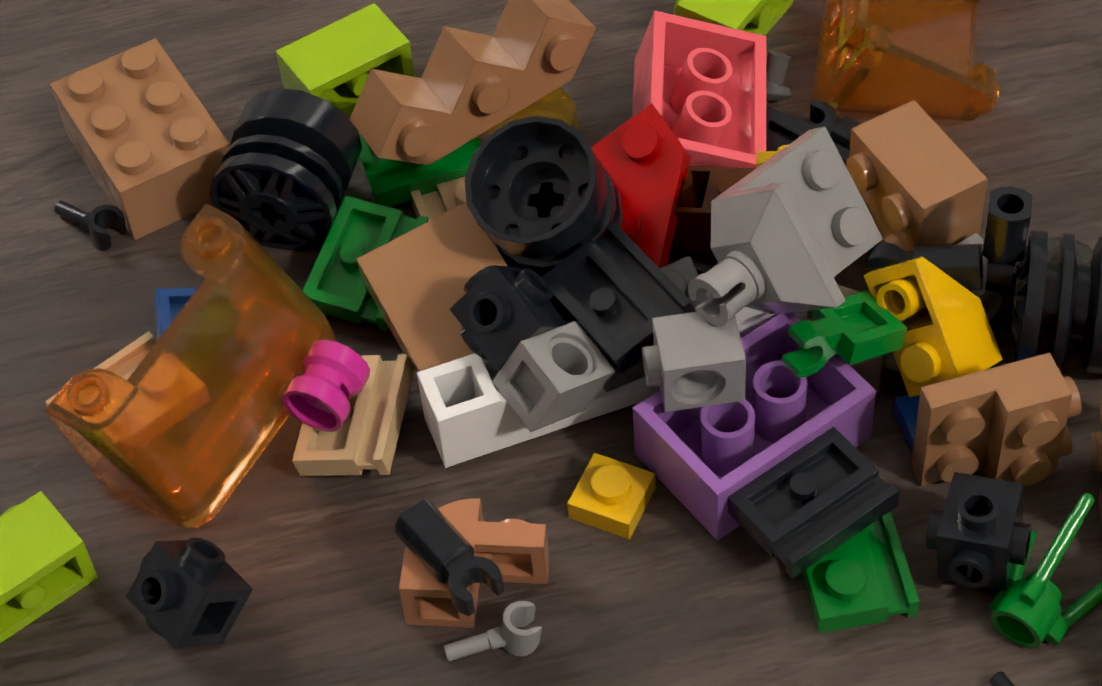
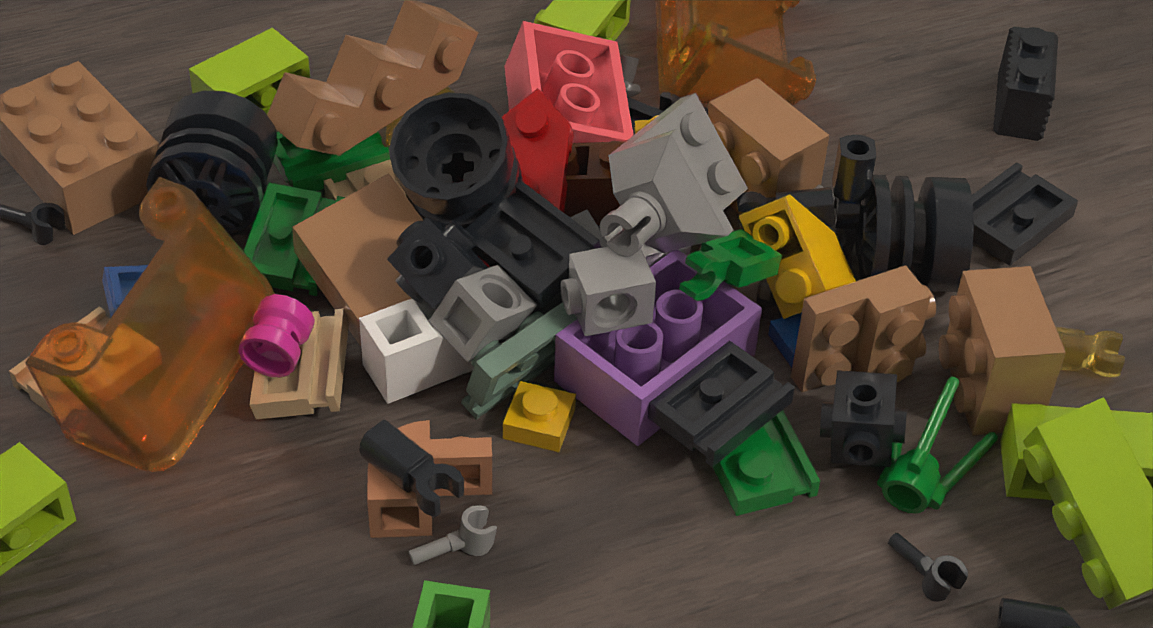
camera: 15 degrees left, 5 degrees down
(189, 592) = (169, 520): black brick -> none
(570, 440) = (520, 358): none -> sand green plate

